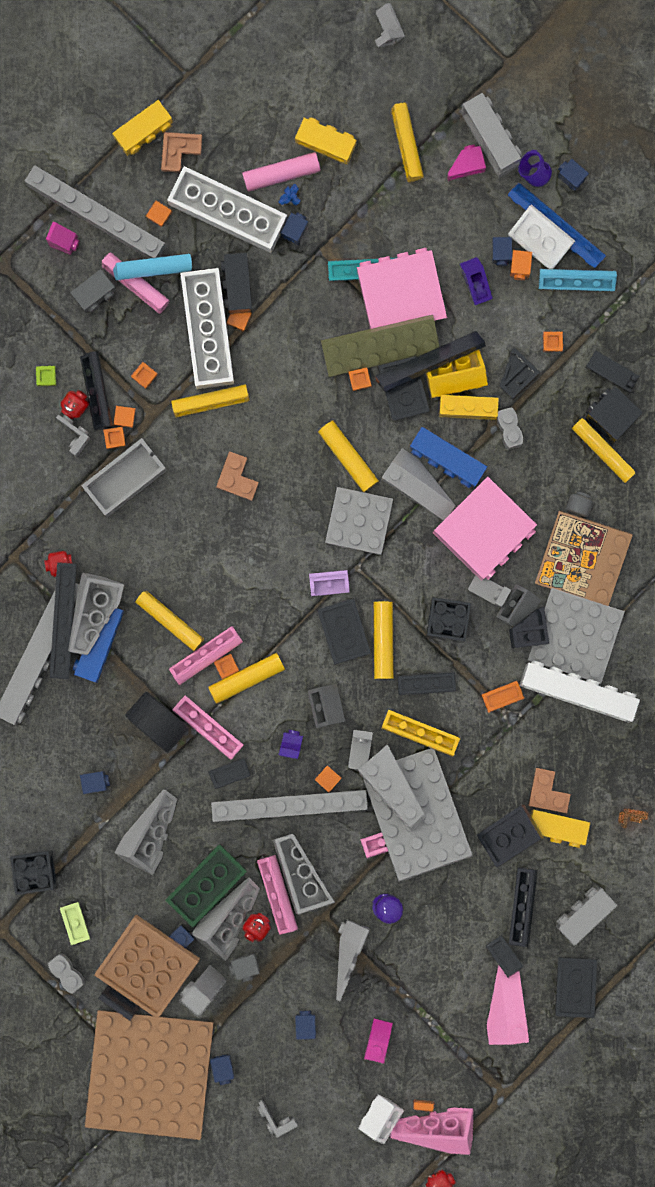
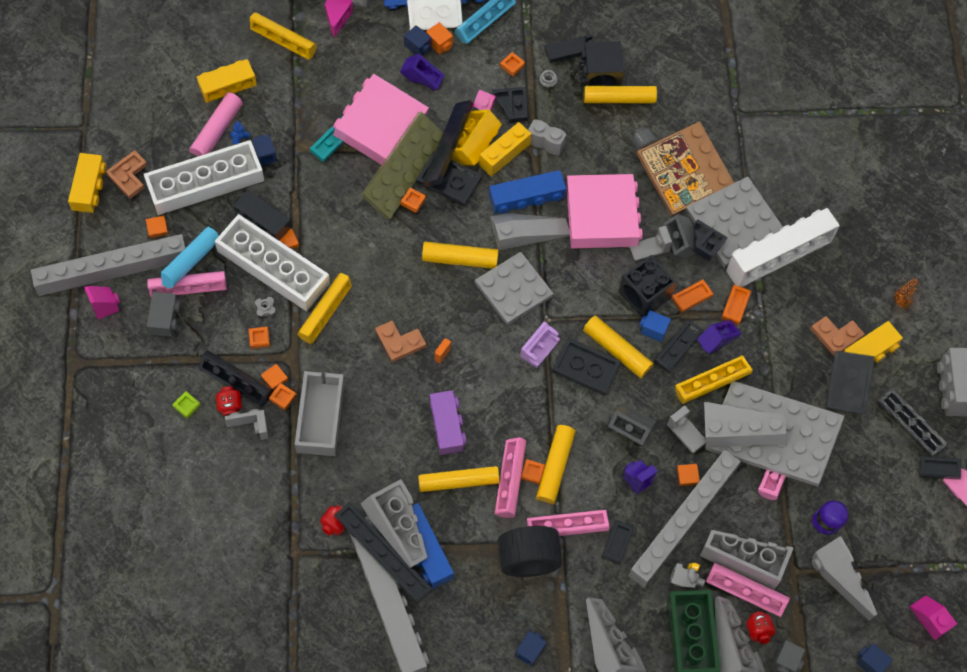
camera: 55 degrees left, 20 degrees down
(171, 351) = (269, 310): none -> light grey plate
(204, 572) = (447, 422): none -> medium lavender brick
(245, 844) = (686, 577): none -> light grey piece
(257, 517) = (442, 350): none -> orange tile
(424, 652) = (654, 325): none -> blue brick
(460, 707) = (718, 335): none -> dark purple arch
(478, 657) = (692, 296): none -> orange tile
(497, 351) = (484, 101): none -> plate
(569, 375) = (548, 74): none -> light grey plate

